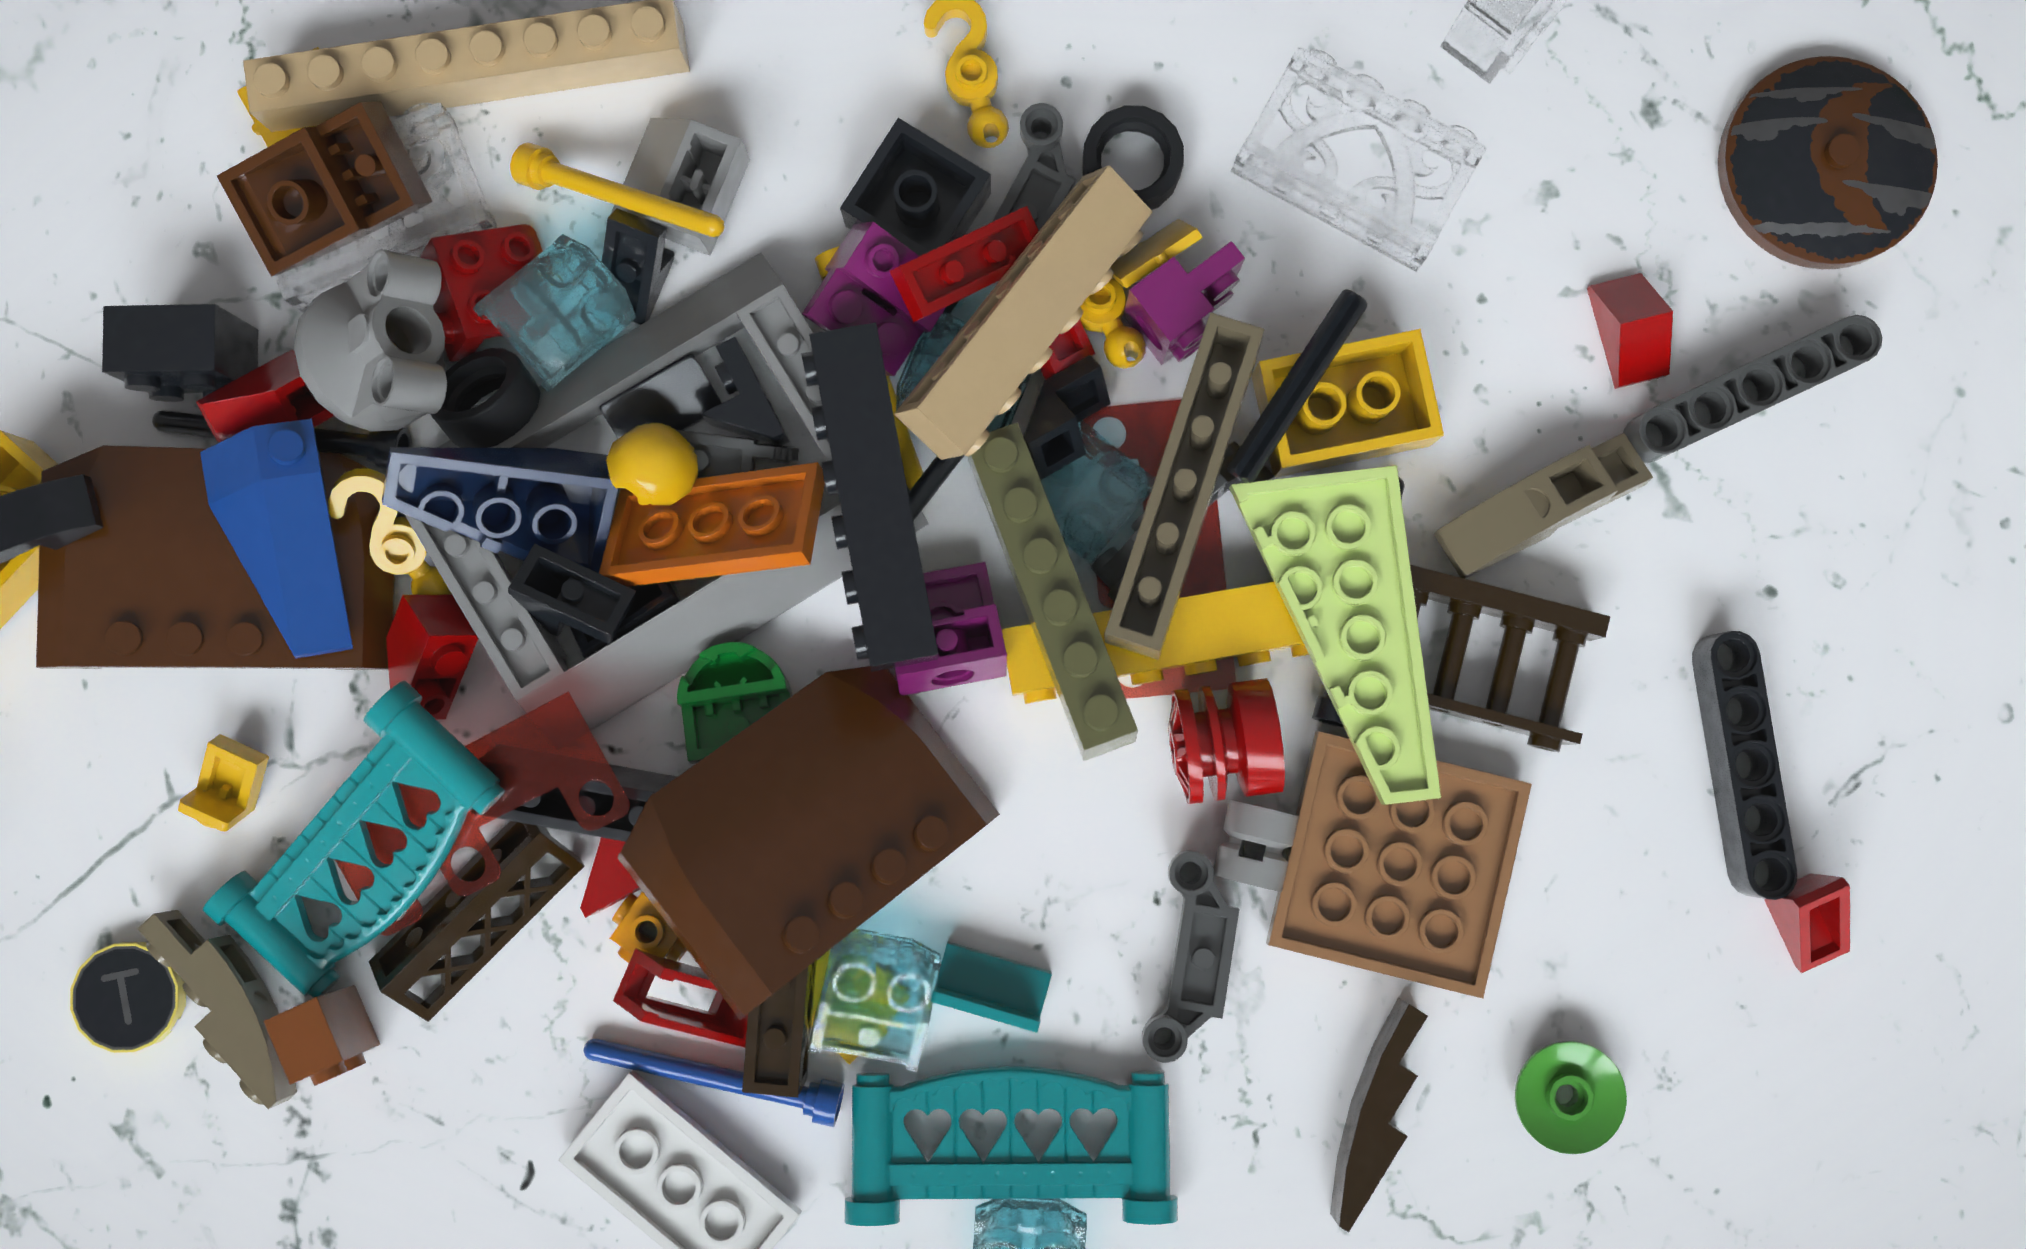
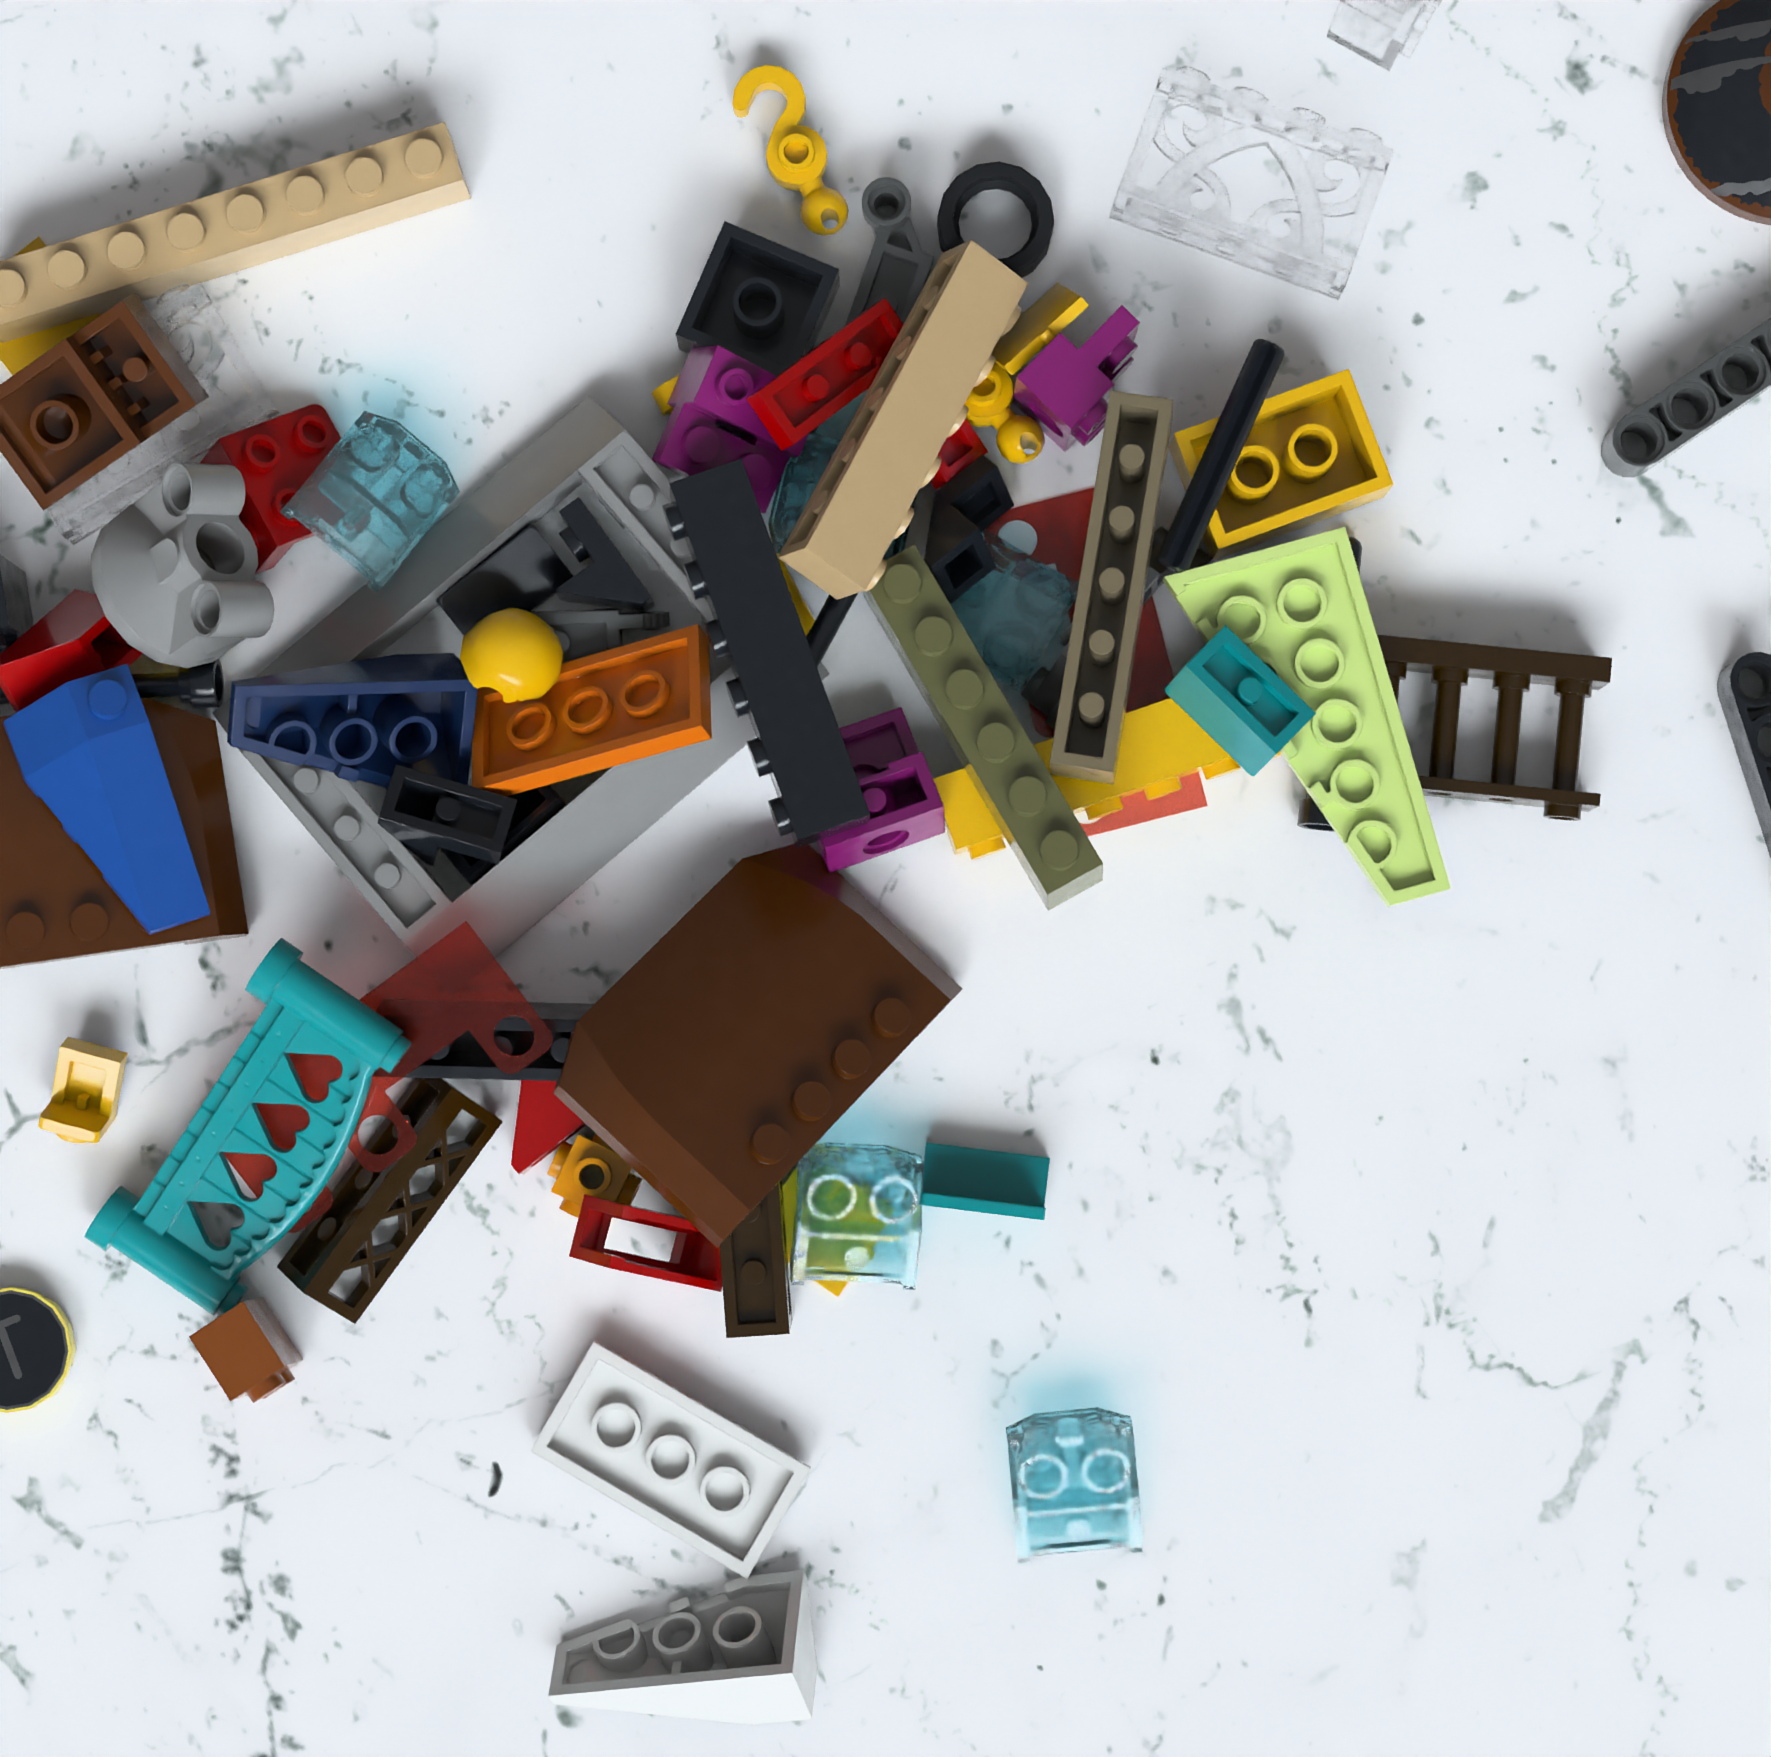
camera: 10 degrees left, 0 degrees up
(228, 984) = (147, 1353): dark tan slope -> none
(392, 541) = (231, 785): yellow piece -> none
(430, 649) = (291, 896): red slope -> none
(499, 415) = (330, 628): black tyre -> none
(539, 168) = (320, 338): yellow piece -> none
(637, 259) = (452, 424): black slope -> none
(691, 167) = (485, 329): light grey slope -> none
(727, 693) = (634, 901): green slope -> none
(818, 1100) = (808, 1340): blue piece -> none
(1129, 1165) = (904, 1399): teal piece -> none
(1199, 962) = (1213, 1113): dark grey plate -> none
(1227, 741) = (1204, 864): red wheel -> none
(1261, 826) = (1255, 954): light grey wheel -> none
(1280, 604) = (1239, 701): none -> teal panel
(1368, 1135) = (1432, 1280): dark brown slope -> none
(1400, 883) = (1421, 992): medium nougat plate -> none
(1542, 504) = (1518, 543): dark tan slope -> none
(1596, 1102) = (1681, 1195): bright green dish -> none
(1633, 329) = (1592, 328): red slope -> none

